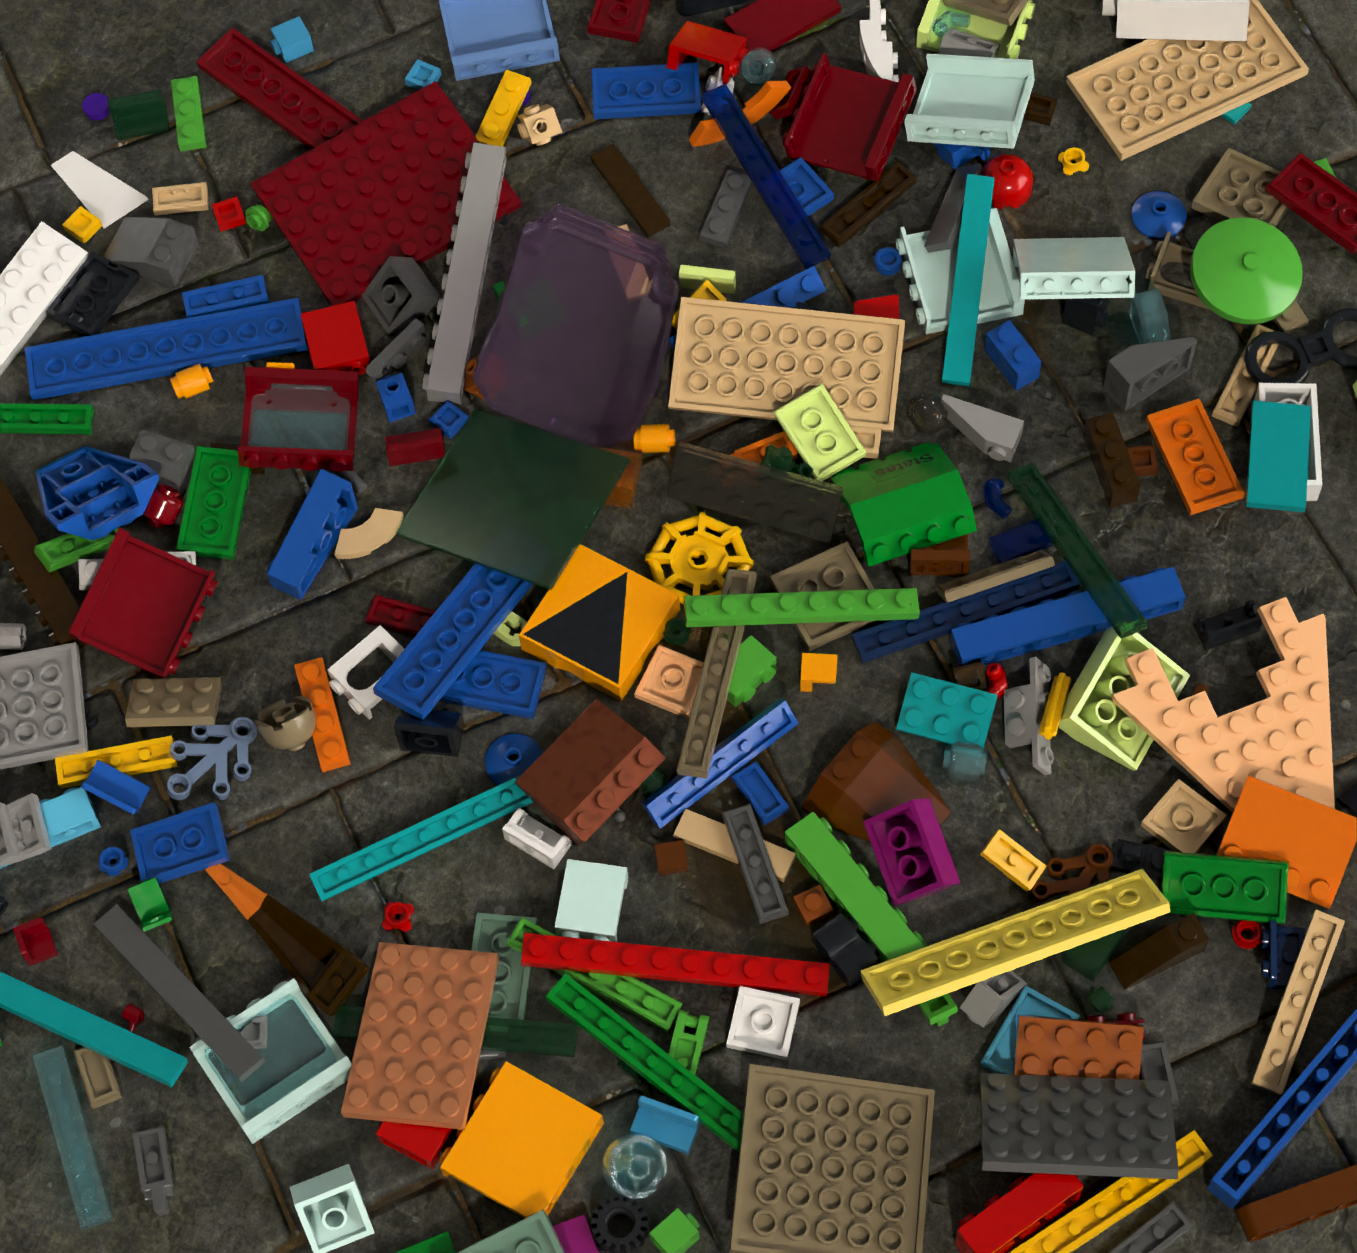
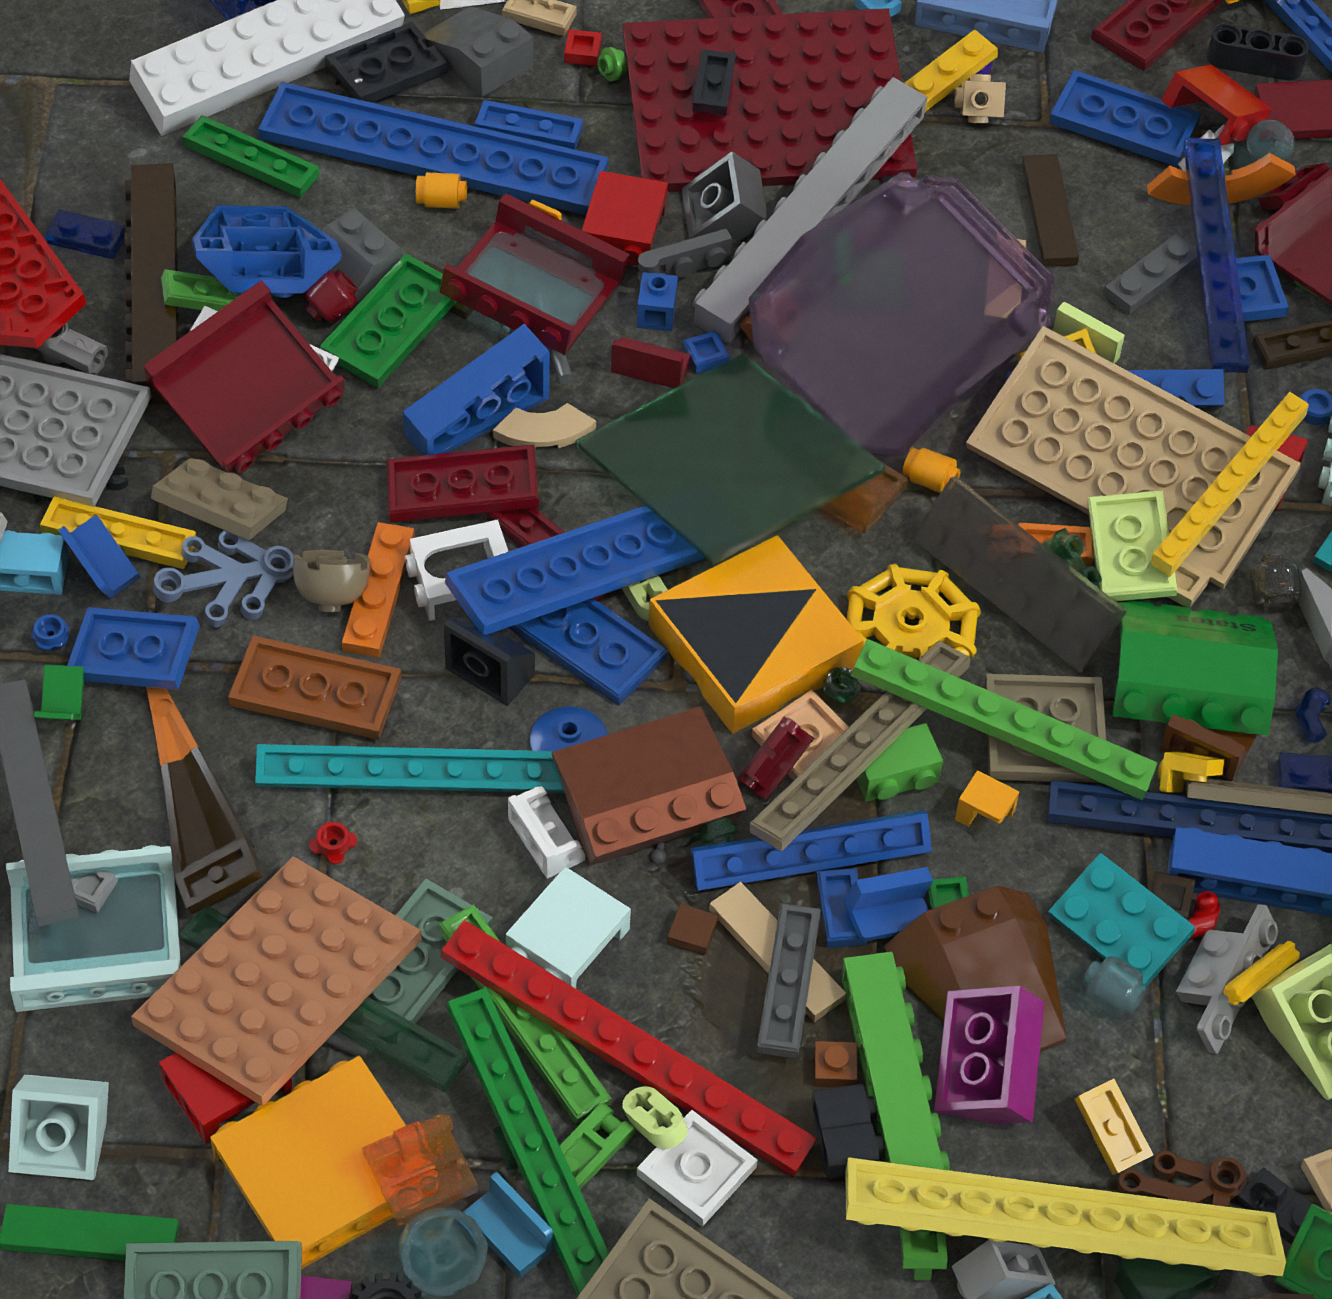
camera: 20 degrees right, 10 degrees down
(321, 810) = (315, 687): none -> dark orange plate
(336, 606) = (462, 483): none -> dark red tile
(345, 203) = (714, 82): none -> black plate
(592, 1119) = (420, 1168): none -> clear orange plate
(662, 708) = (775, 758): none -> dark red hinge
(717, 1008) = (661, 1112): none -> yellowish green beam
(792, 777) = (887, 902): none -> blue panel
(824, 749) = (946, 891): none -> green tile
(866, 359) = (1229, 484): none -> yellow piece
(937, 580) = (1188, 766): none -> yellow bracket

